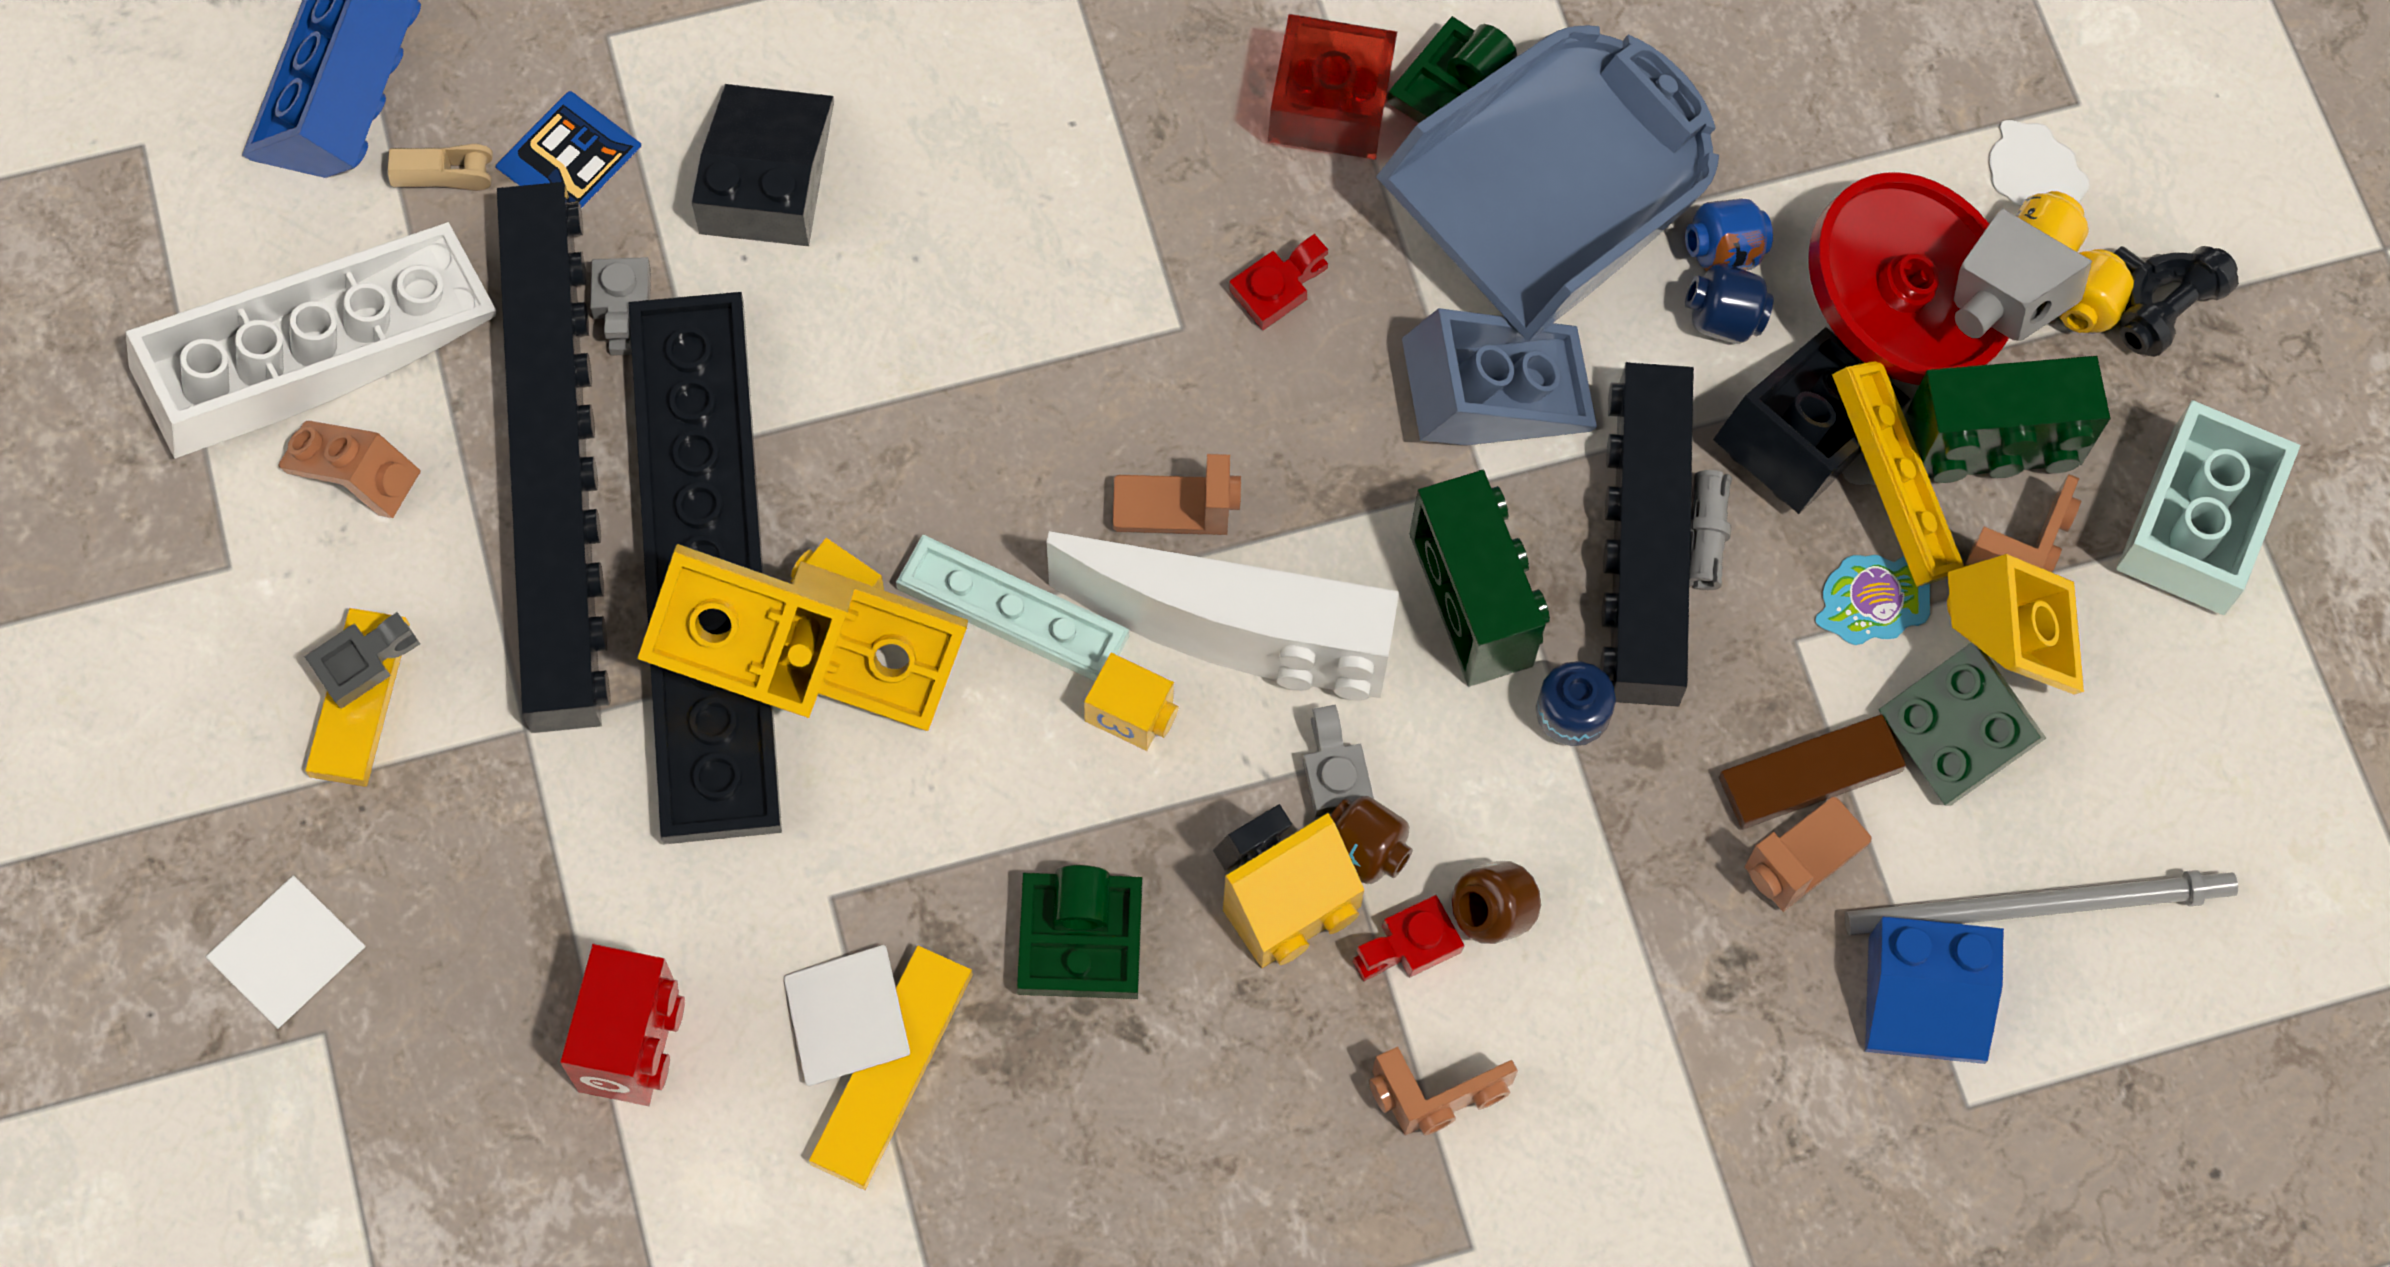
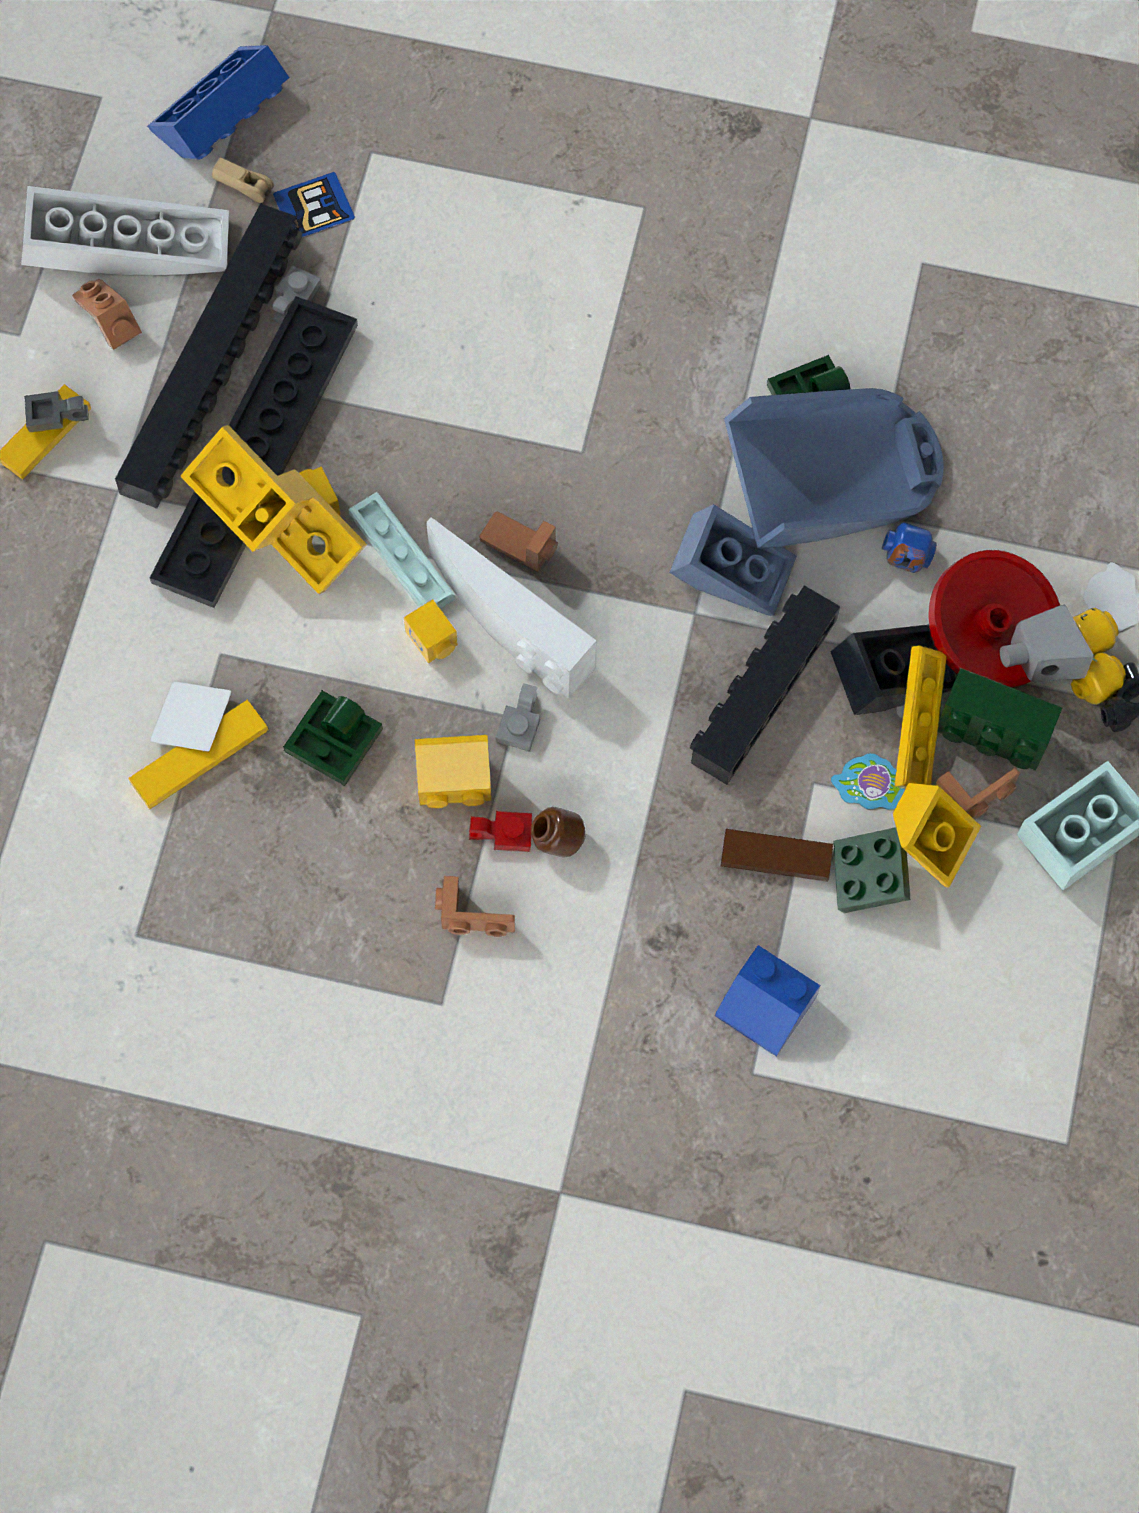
camera: 30 degrees right, 0 degrees up
(622, 1026) = (71, 660): red brick -> none
(762, 165) = (409, 257): black slope -> none
(1253, 838) = (447, 727): black plate -> none
(1275, 287) = (642, 453): red plate -> none
(1332, 86) = (736, 360): clear red brick -> none
(1373, 838) = (512, 765): reddish brown head -> none
(1478, 577) = (652, 658): dark green brick -> none
(1575, 703) = (666, 751): dark blue head -> none
(1709, 528) = (798, 698): light grey pin -> none
(1729, 303) = (886, 583): dark blue head -> none
(1806, 854) = (743, 895): nougat bracket -> none
(2191, 888) = (946, 1023): light grey bar -> none

